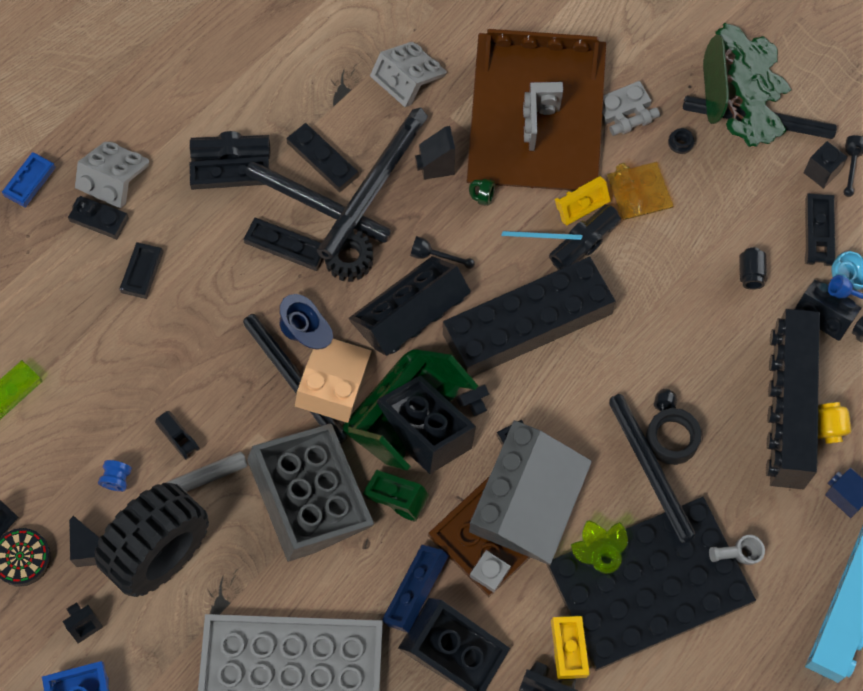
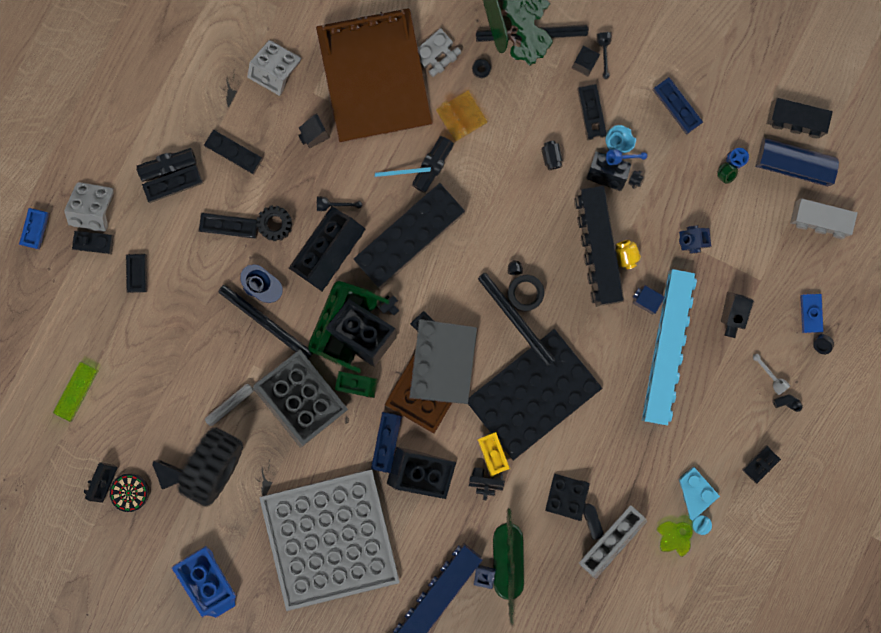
camera: 15 degrees left, 20 degrees up
(81, 622) = (184, 524): black tile -> none
(114, 475) = (170, 424): blue wheel -> none
(175, 432) = (198, 382): black bar -> none
(314, 200) = (241, 190): black axle -> none
(333, 380) = (292, 317): light nougat slope -> none
(372, 184) = (275, 165): black piece -> none
(485, 193) = (355, 148): dark green tile -> none
(490, 571) = (430, 420): light grey plate -> none
(541, 98) = (379, 70): light grey bracket -> none
(583, 200) = (424, 136): yellow plate -> none
(600, 543) = (496, 380): clear neon green plate -> none
(750, 543) = (594, 362): light grey bar -> none

